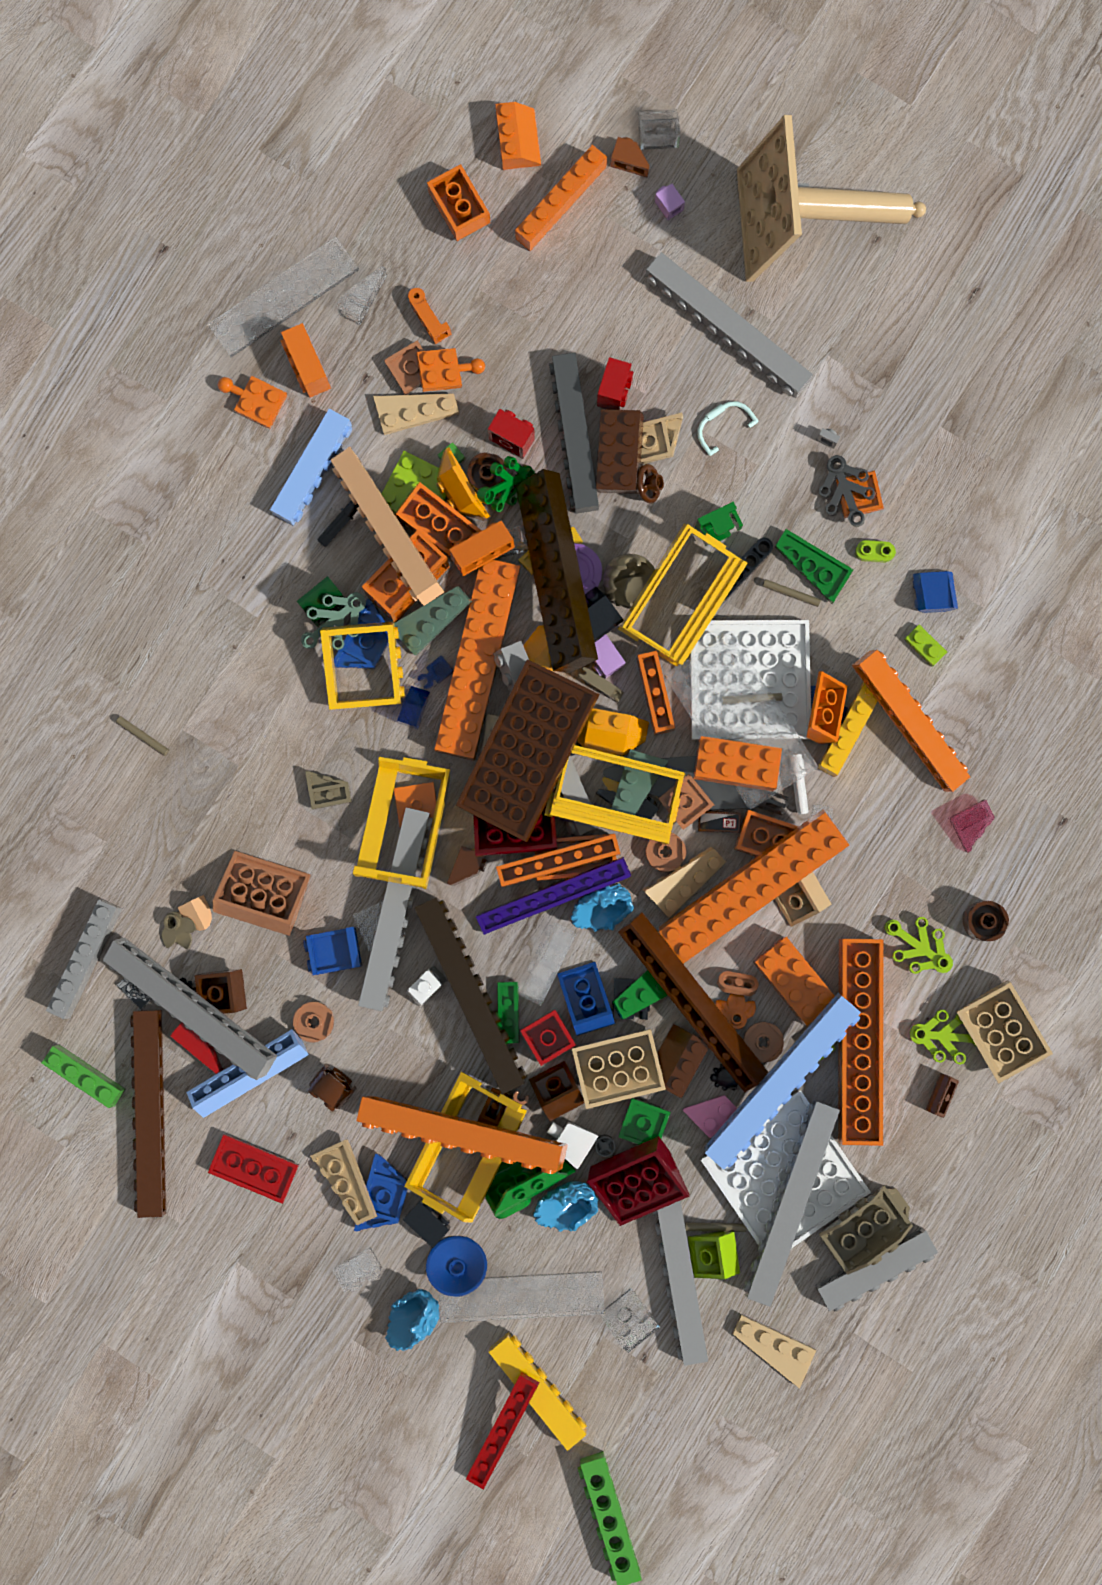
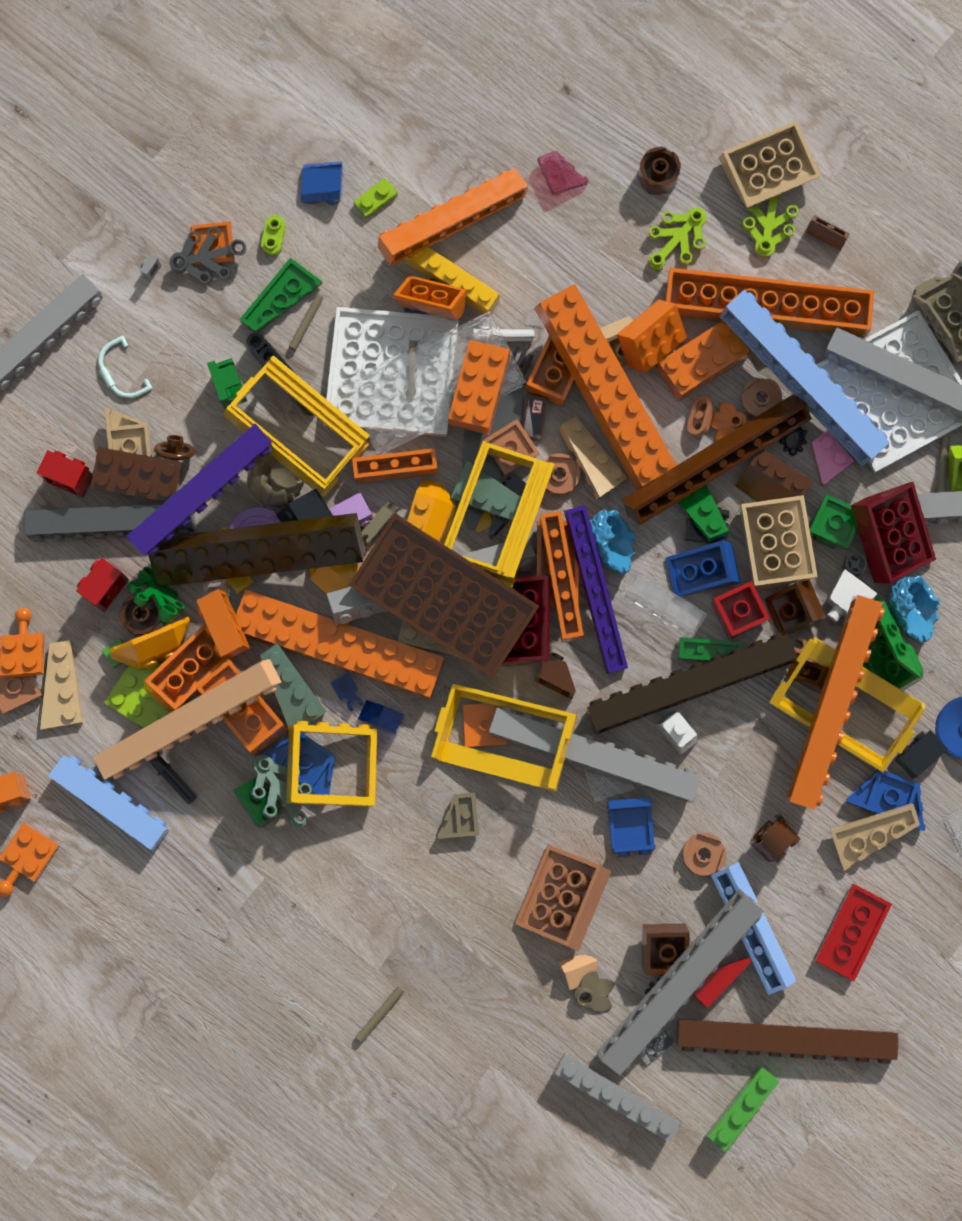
camera: 85 degrees left, 5 degrees down
(603, 508) = (200, 490): none -> dark purple brick
(810, 927) = (652, 336): none -> orange brick

